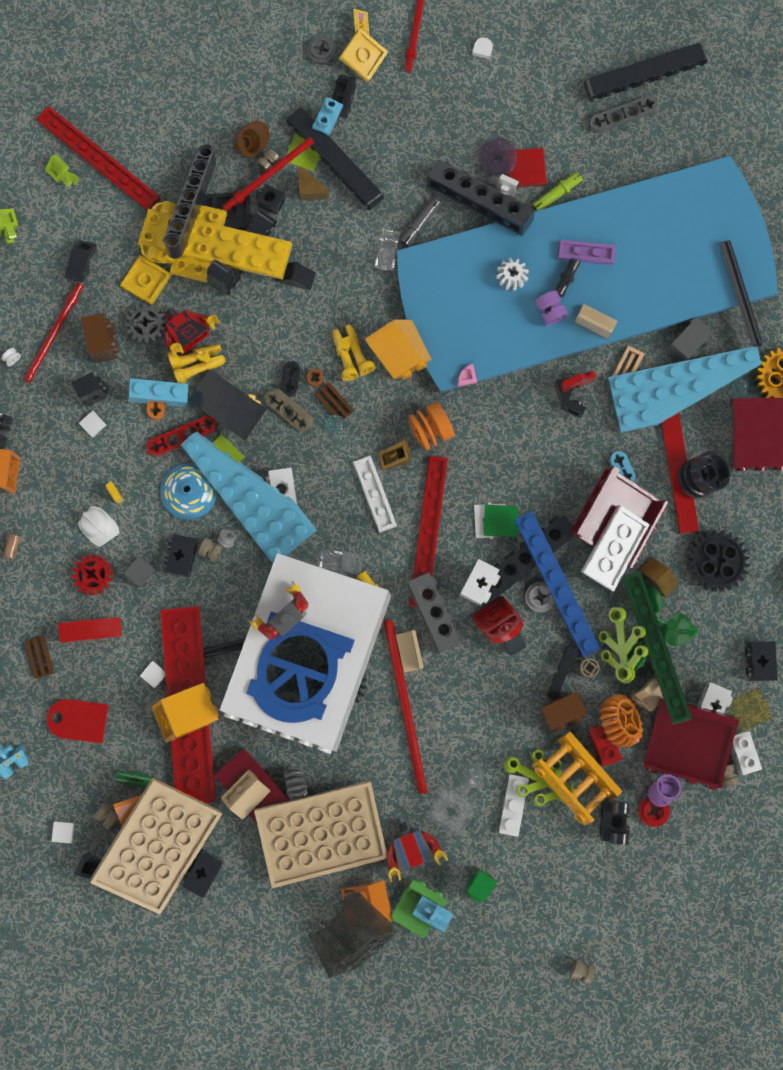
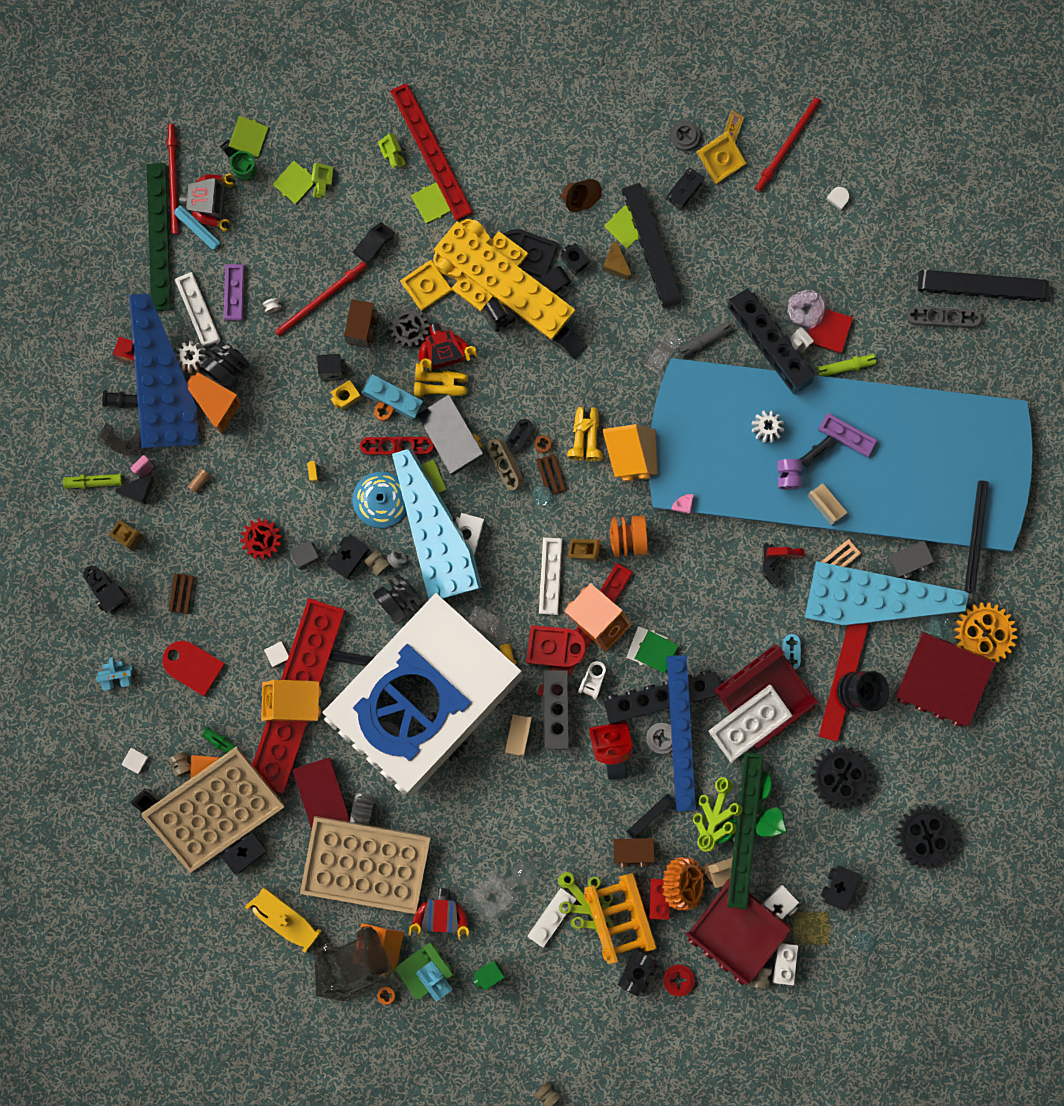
camera: 30 degrees right, 0 degrees up
(89, 630) = (237, 588): red slope -> none
(92, 424) = (320, 399): white tile -> none
(98, 526) = (284, 496): white piece -> none
(112, 402) = (349, 388): none -> yellow brick
(117, 204) = (430, 203): none -> lime piece
(190, 201) = (494, 237): black beam -> none
(239, 197) = (545, 244): red bar -> none
(244, 574) = (397, 599): none -> black wheel
(245, 795) = (312, 799): tan panel -> none
(267, 918) = (284, 919): none -> yellow piece
(268, 160) = (588, 222): dark tan wheel -> none
(284, 619) = (417, 655): torso -> none
(327, 116) = (661, 203): medium azure hips -> none
(391, 952) = (382, 1000): none -> orange bush
(405, 707) = (492, 784): red piece -> none
(406, 556) = (553, 647): none -> red tile
(435, 511) = (598, 617): none -> slope
(455, 572) = (592, 681): none -> white piece
(480, 571) = (598, 702): white brick -> none
(588, 668) = (676, 823): dark tan wheel -> none
(659, 576) = (780, 767): pearl gold slope -> none
(664, 790) = (695, 964): medium lavender wheel -> none

